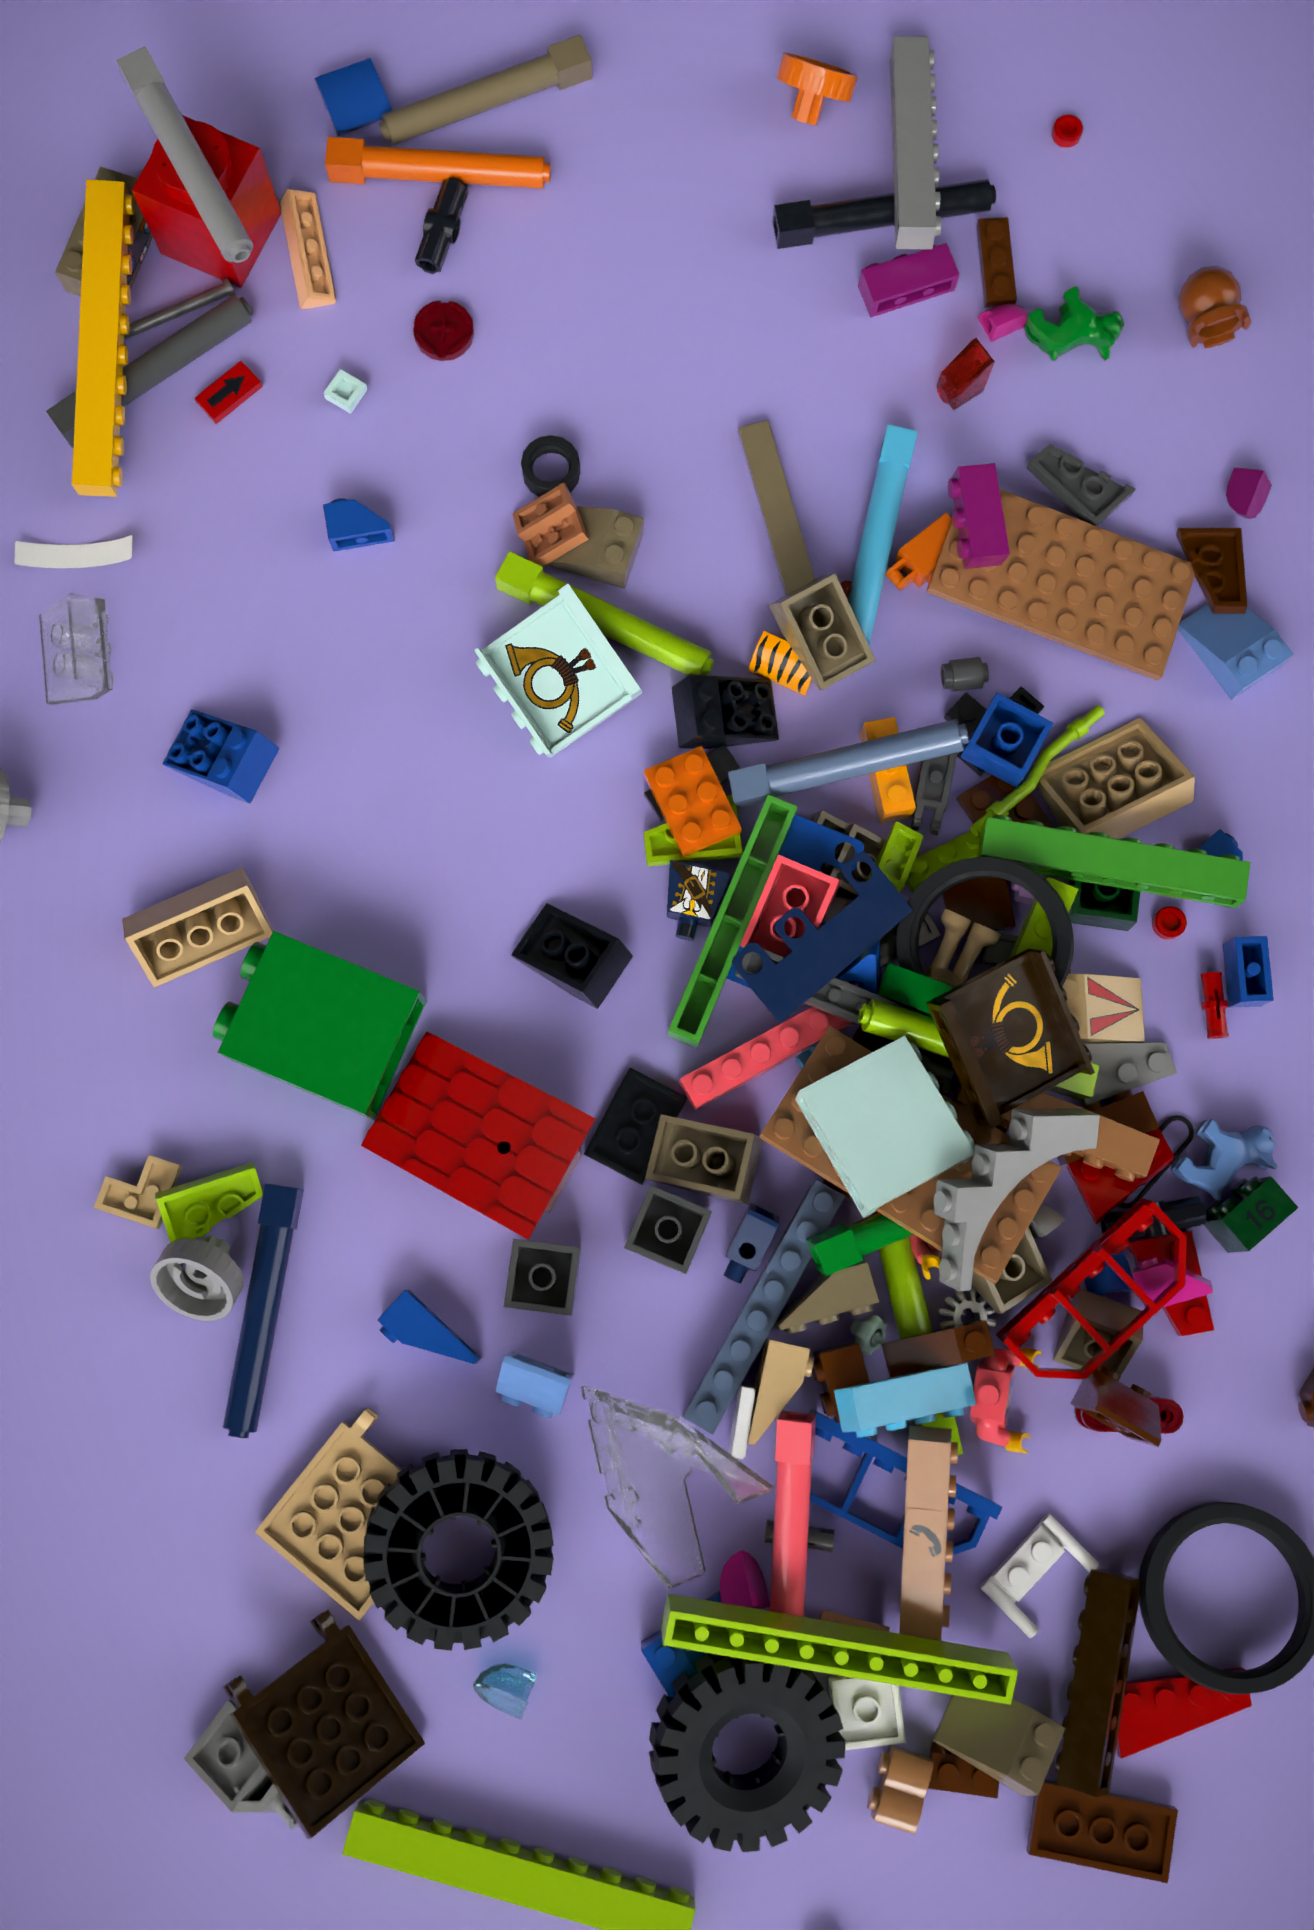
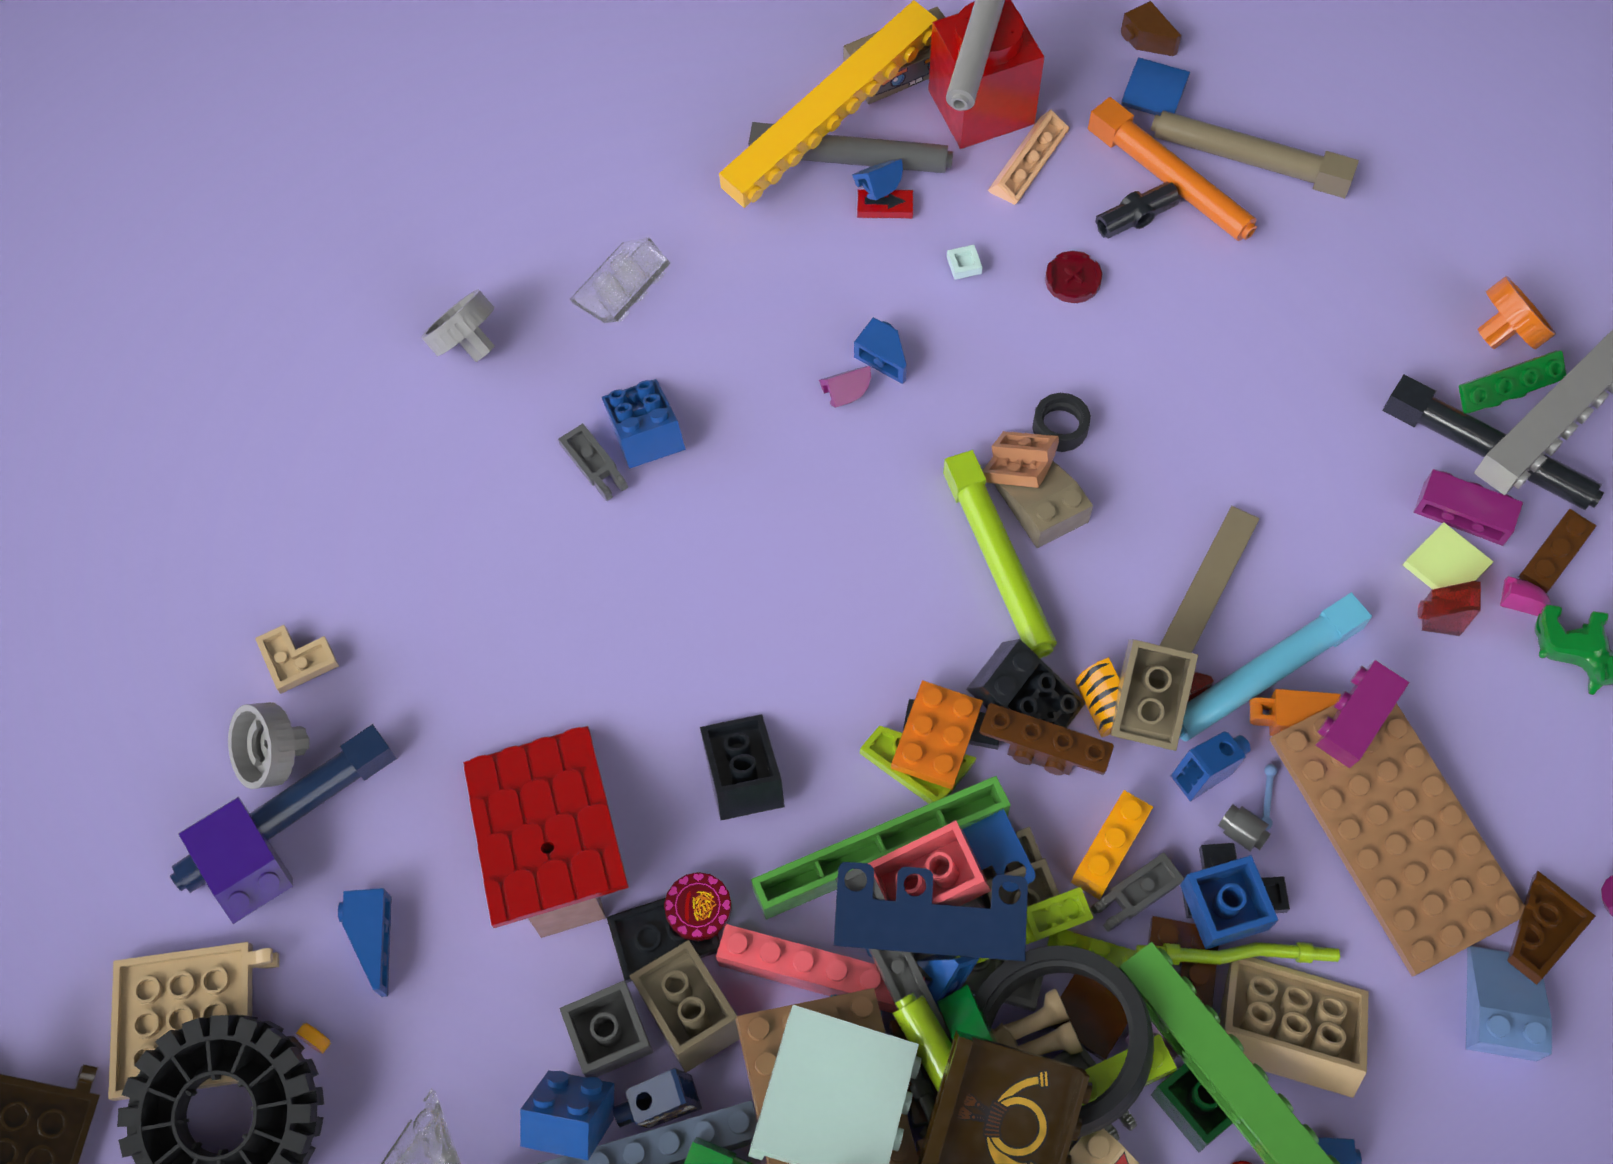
camera: 50 degrees right, 15 degrees down
(73, 555) = (680, 223): white sticker -> none
(180, 308) = (902, 129): flat silver bar -> none
(196, 927) = (511, 518): tan slope -> none
(202, 1203) = (321, 701): lime wing -> none
(205, 373) = (880, 179): none -> blue brick
(211, 823) = (592, 460): none -> dark grey hinge
(272, 1376) = (236, 860): none -> dark purple slope
(300, 43) = (1150, 30): none -> reddish brown slope
(319, 1023) = (519, 653): green brick -> none
(354, 581) = (847, 385): none -> magenta brick
(462, 1436) = (313, 1037): none -> light orange tile
(533, 1383) = (398, 1046): medium blue slope -> none
(542, 1277) = (484, 976): dark grey brick -> none
(558, 673) = (925, 561): light aqua panel -> none
(643, 1084) = (698, 906): none -> dark red tile
(694, 896) = (869, 802): torso -> none
(702, 1310) = (567, 1114): none -> blue brick
(755, 782) = (1081, 805): sand blue brick -> none
(776, 736) = (1045, 742): none -> reddish brown bracket
(859, 144) = (1512, 382): none -> green bracket
(904, 642) = (1210, 763): none -> blue torso
(928, 338) = (1447, 559): none -> yellowish green tile
(943, 614) = (1270, 770): none -> medium blue hinge
(1082, 490) = (1476, 772): dark grey wing -> none

